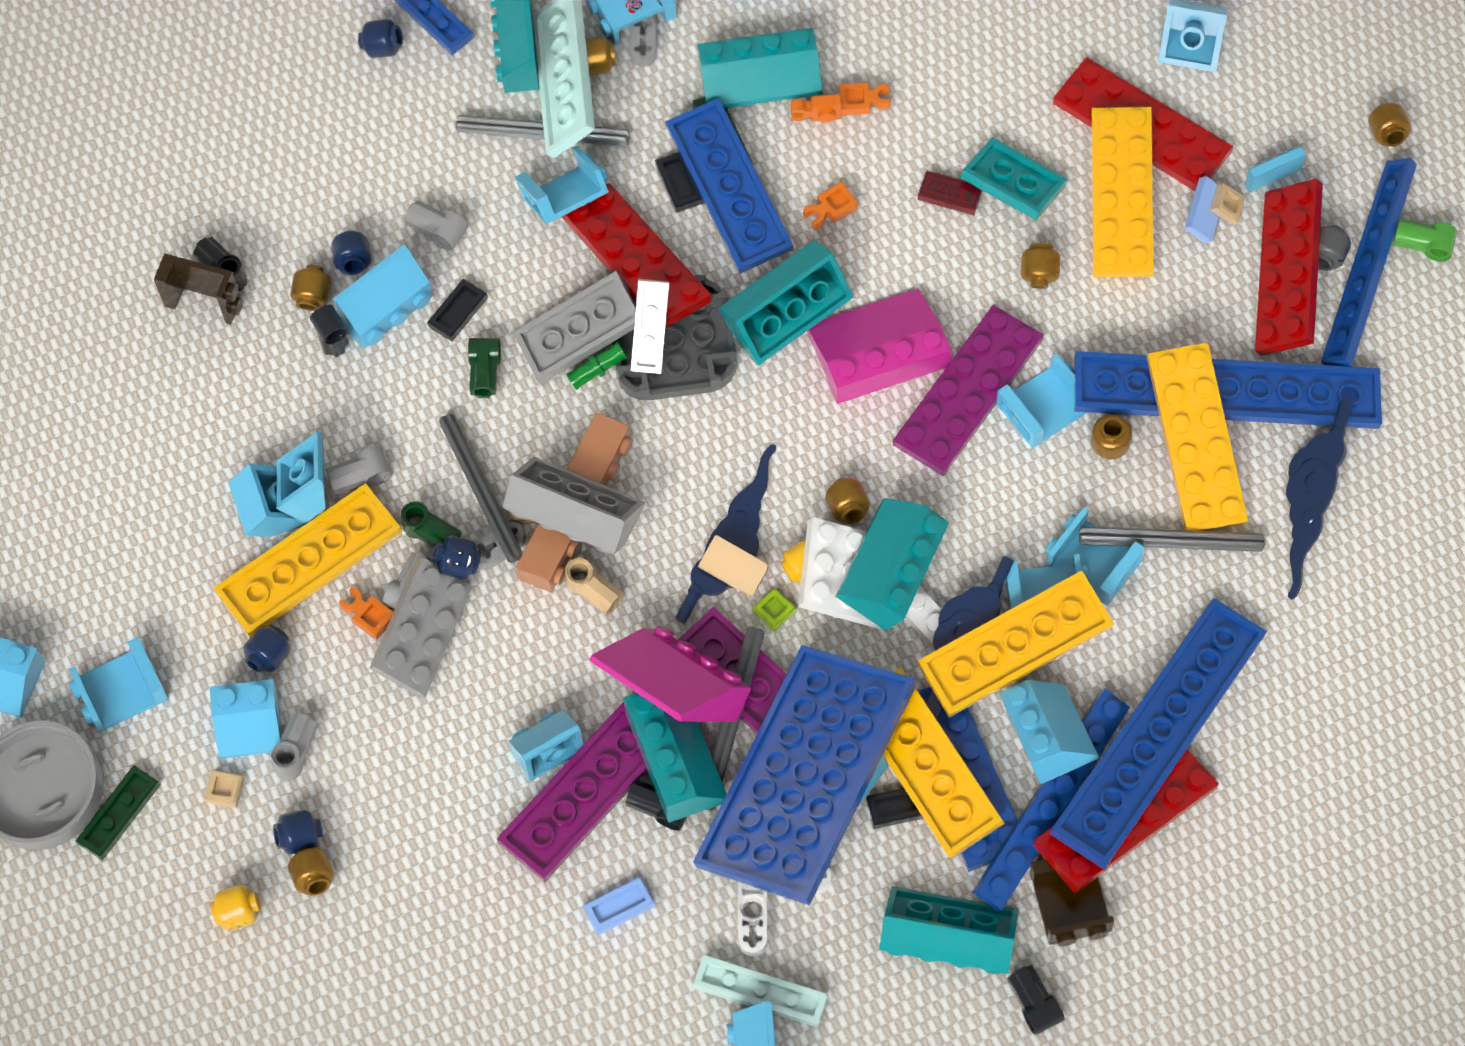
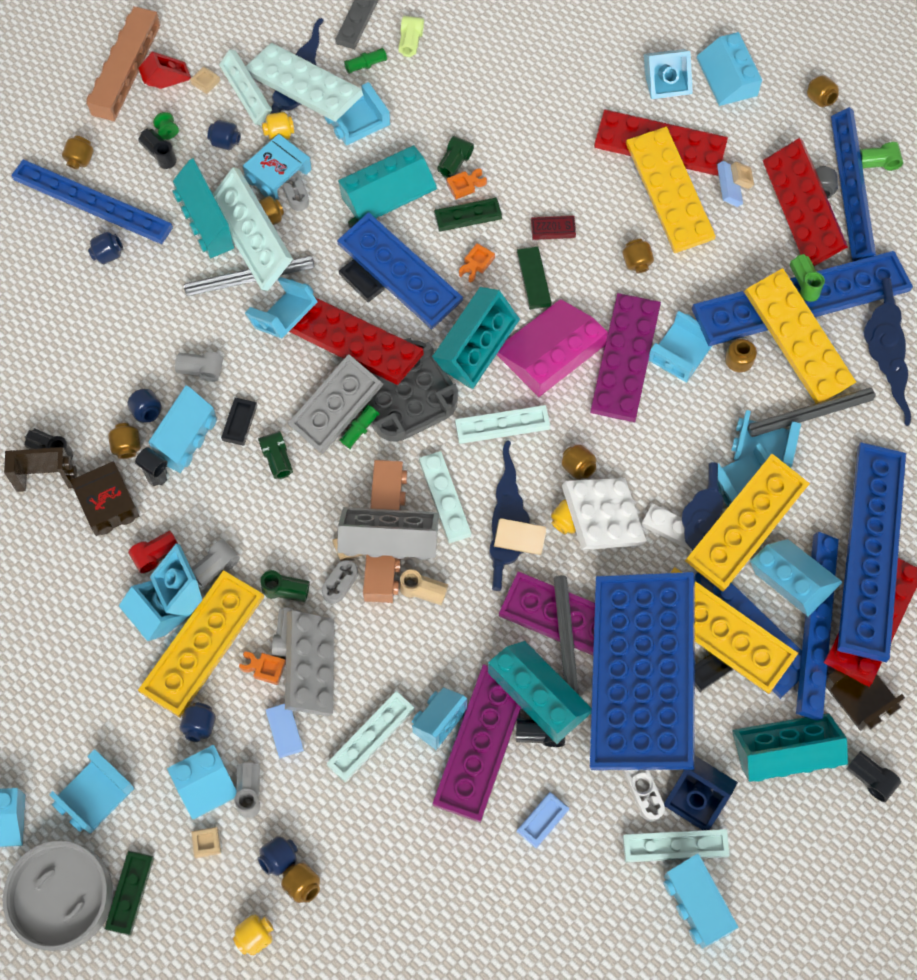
camera: 25 degrees left, 0 degrees up
(260, 350) = (104, 499): none -> dark brown panel
(286, 433) = (147, 555): none -> red piece
(362, 696) = (284, 731): none -> light blue tile
(457, 557) = (316, 601): dark blue head -> none
(458, 737) = (370, 736): none -> light aqua plate
(481, 488) = (311, 544): dark grey axle -> none
(649, 326) = (391, 384): white plate -> none
(666, 487) = (445, 497): none -> light aqua plate
(674, 676) = (518, 632): dark pink slope -> none
(774, 422) = (502, 424): none -> light aqua plate
(774, 609) = (560, 558): lime tile -> none
(816, 942) = (701, 794): none -> dark blue slope
(820, 108) = (440, 199): orange plate -> none
(849, 140) = (468, 214): none -> dark green tile
(869, 54) = (457, 152): none -> dark green piece
(892, 561) = (634, 494): teal slope -> none
(896, 250) = (533, 278): none -> dark green tile
(1014, 178) = (594, 203): teal plate -> none
(1239, 365) = (807, 277): none -> bright green piece
(1275, 168) = (763, 143): medium azure tile -> none
(1277, 55) = (730, 70): none -> medium azure slope

